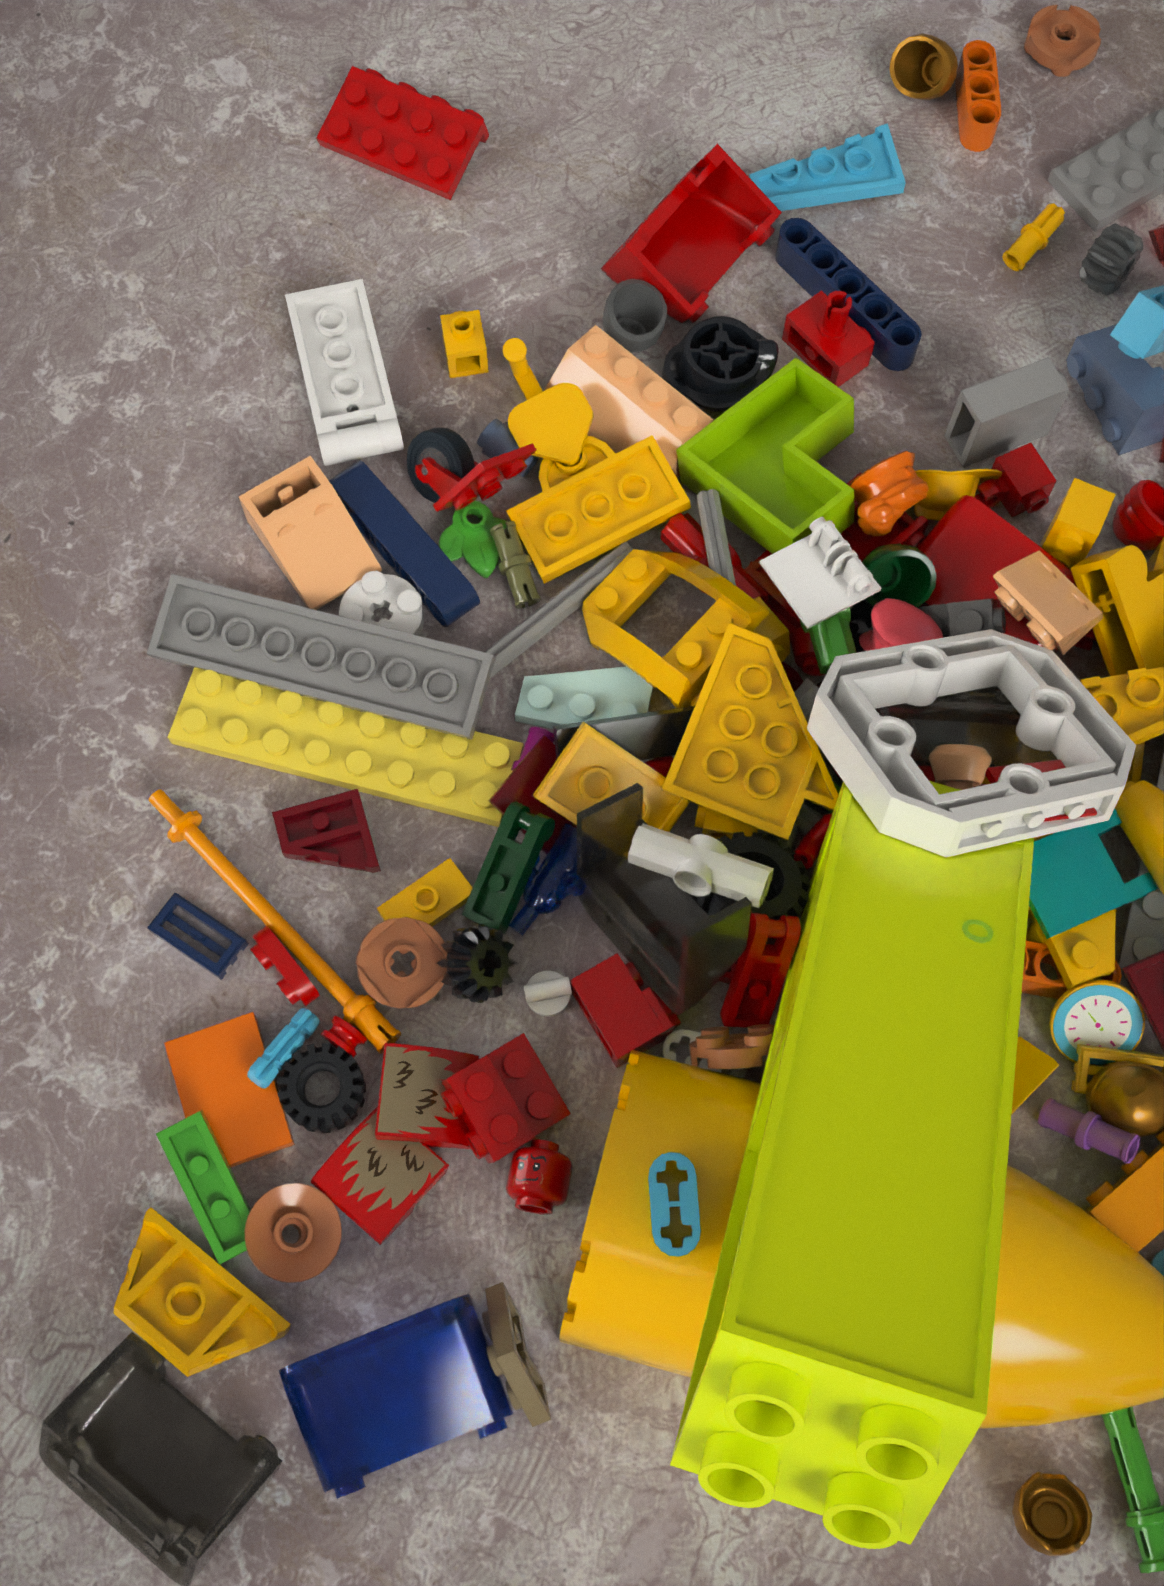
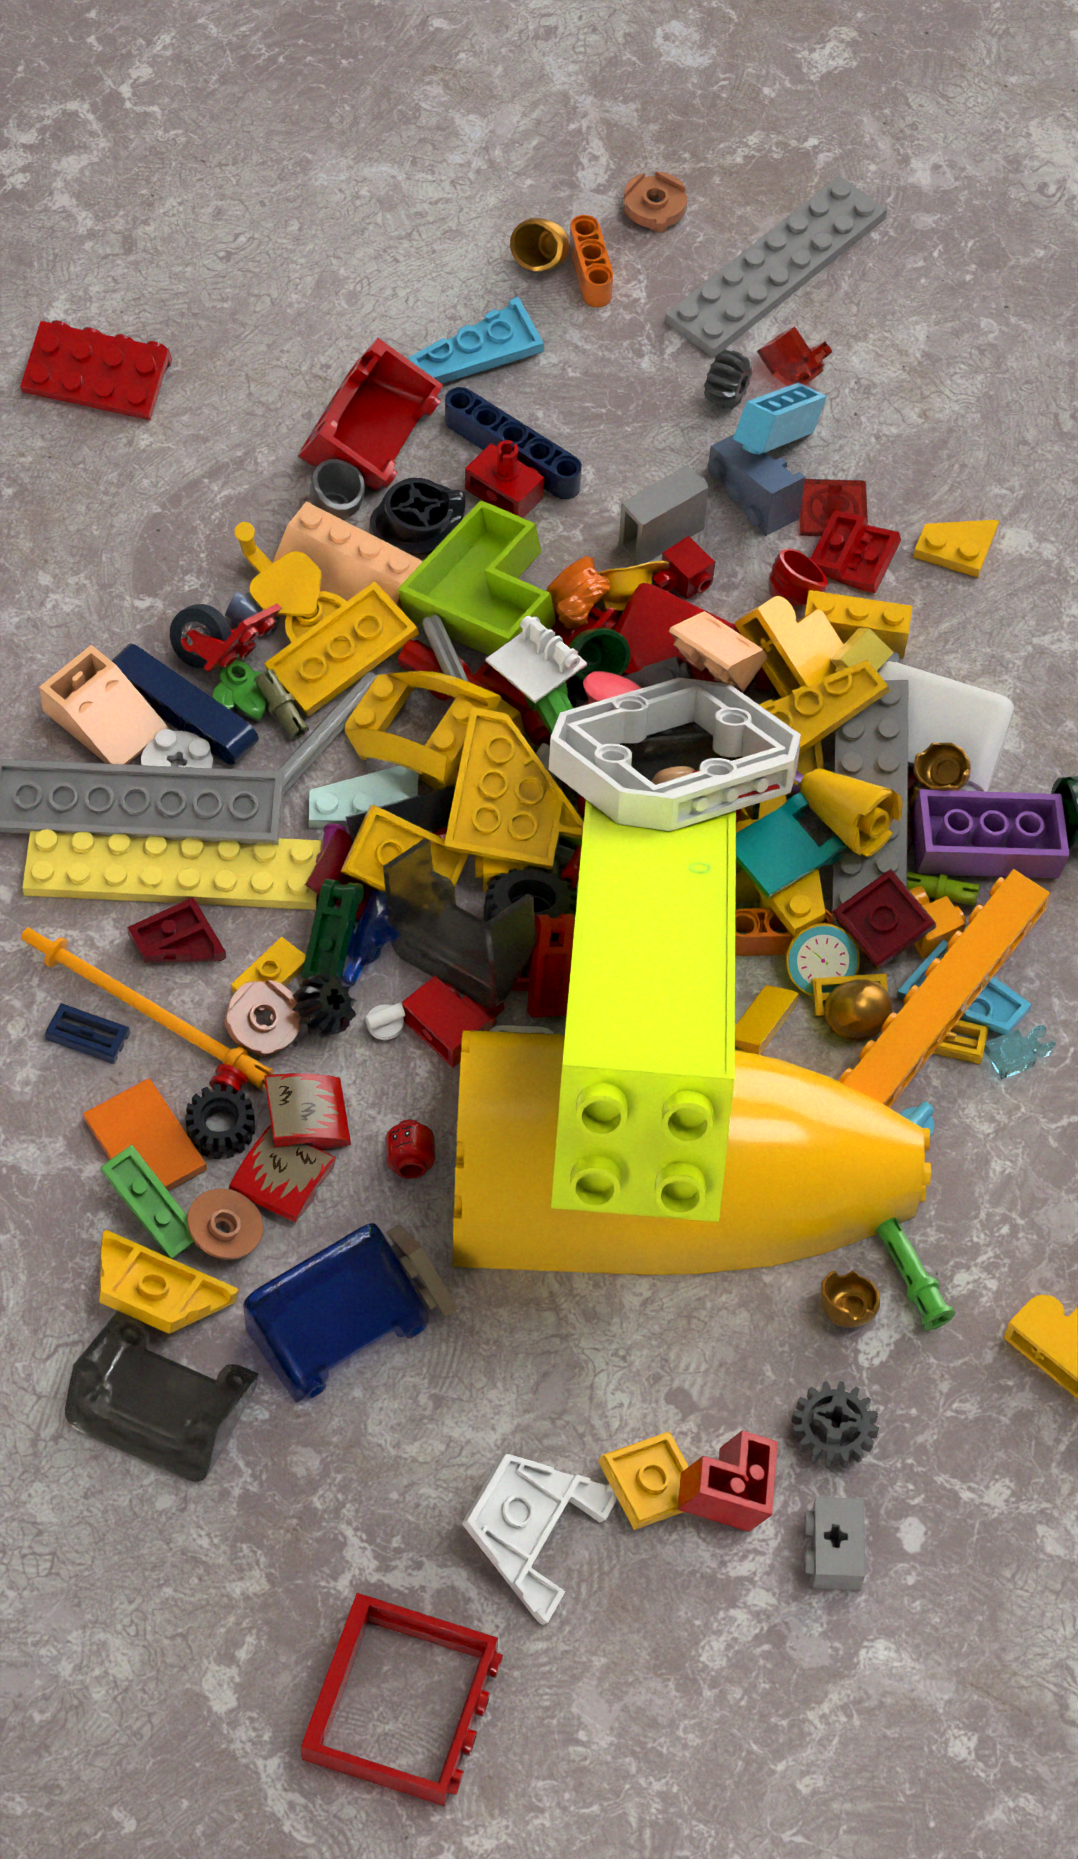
camera: 15 degrees left, 10 degrees down
(271, 953) = (175, 1044): red plate -> none
(280, 1050) = (181, 1096): medium azure axle -> none
(344, 372) = (97, 576): white hinge -> none
(464, 343) = (195, 536): yellow brick -> none
(504, 1099) = (368, 1099): red plate -> none
(687, 1203) = (528, 1096): medium azure beam -> none
(700, 865) = (485, 889): white piece -> none
(732, 1050) = (542, 1021): nougat plate -> none
(1033, 237) = (661, 371): yellow axle -> none
(1077, 522) = (733, 587): yellow brick -> none
(1089, 1130) = (829, 1034): medium lavender pin -> none

